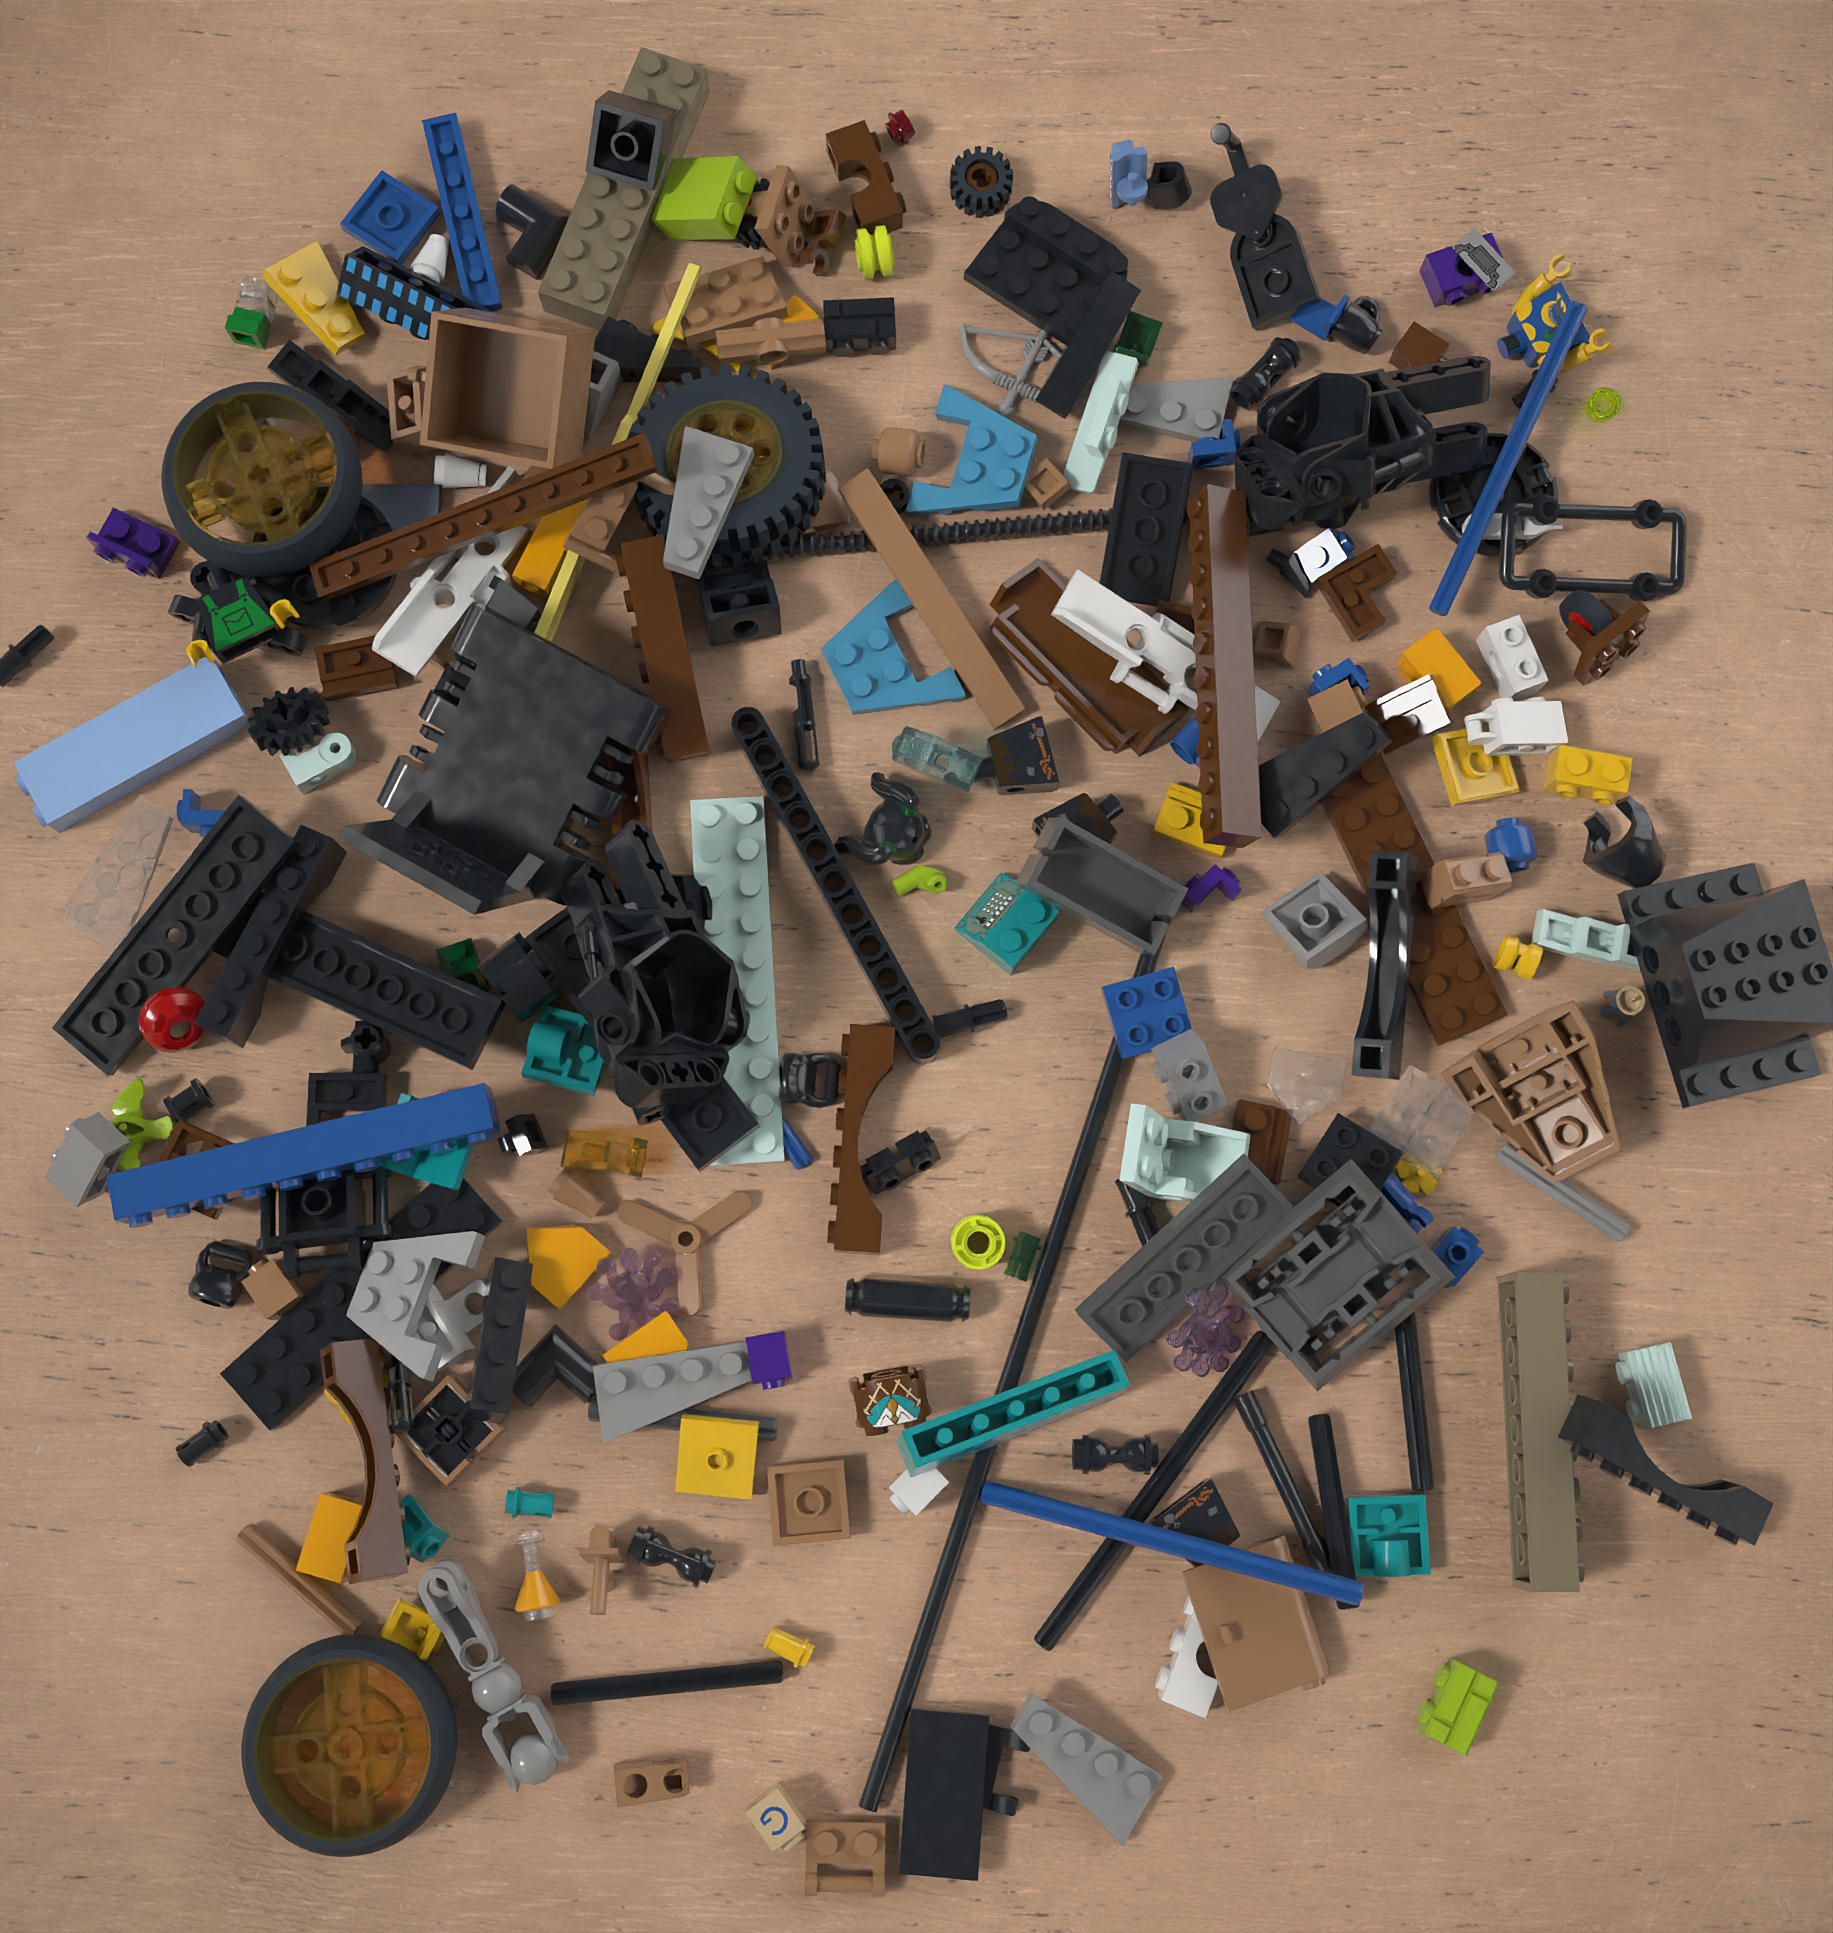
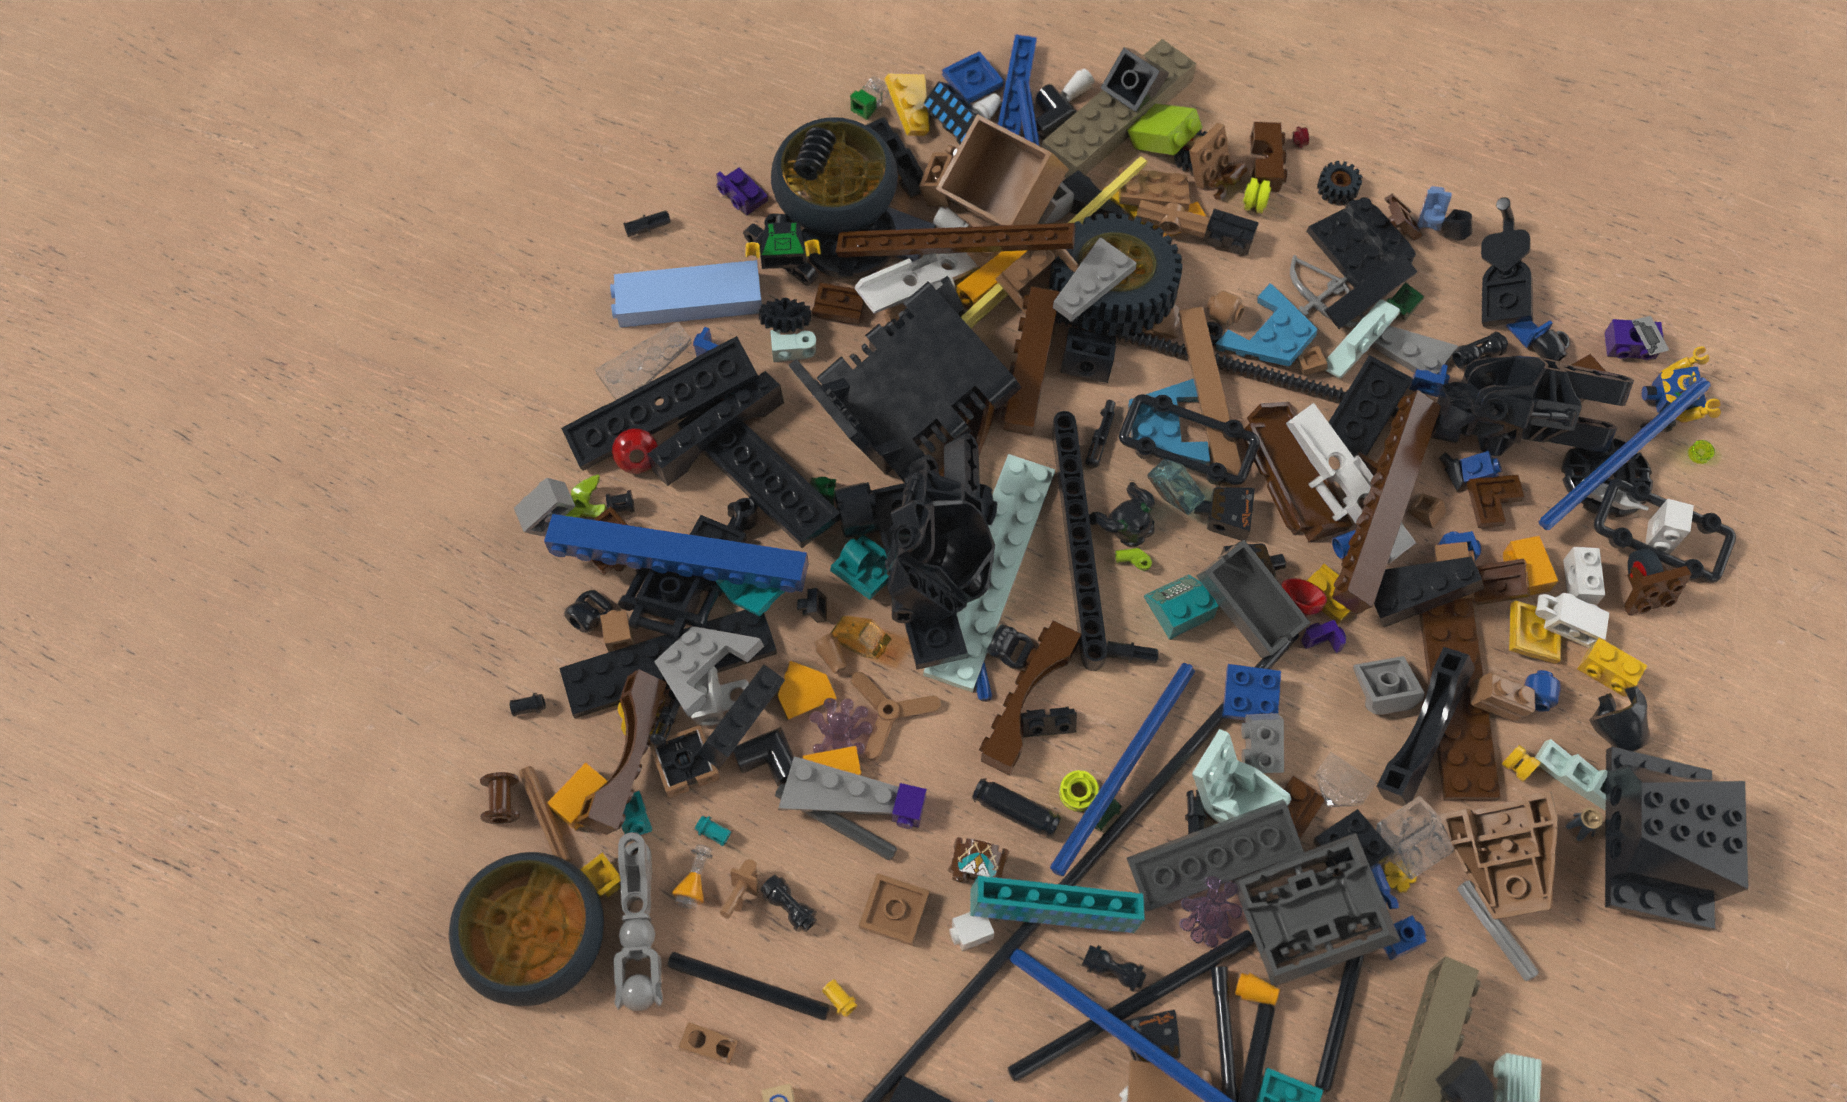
camera: 25 degrees right, 15 degrees down
(219, 465) = (814, 153): none -> black piece
(228, 1588) = (499, 798): none -> reddish brown hose
(502, 260) = (1027, 111): none -> blue axle
(548, 168) = (1079, 83): none -> white cone
(716, 1456) = (847, 853): yellow plate -> none
(871, 644) = (1163, 406): none -> black bar
(1023, 1189) = (1121, 770): none -> blue axle
(1088, 208) = (1402, 218): none -> reddish brown plate
(1163, 840) = (1305, 595): none -> red piece
(1299, 1404) = (1256, 989): none -> light orange cone
(1597, 542) = (1669, 525): none -> white brick

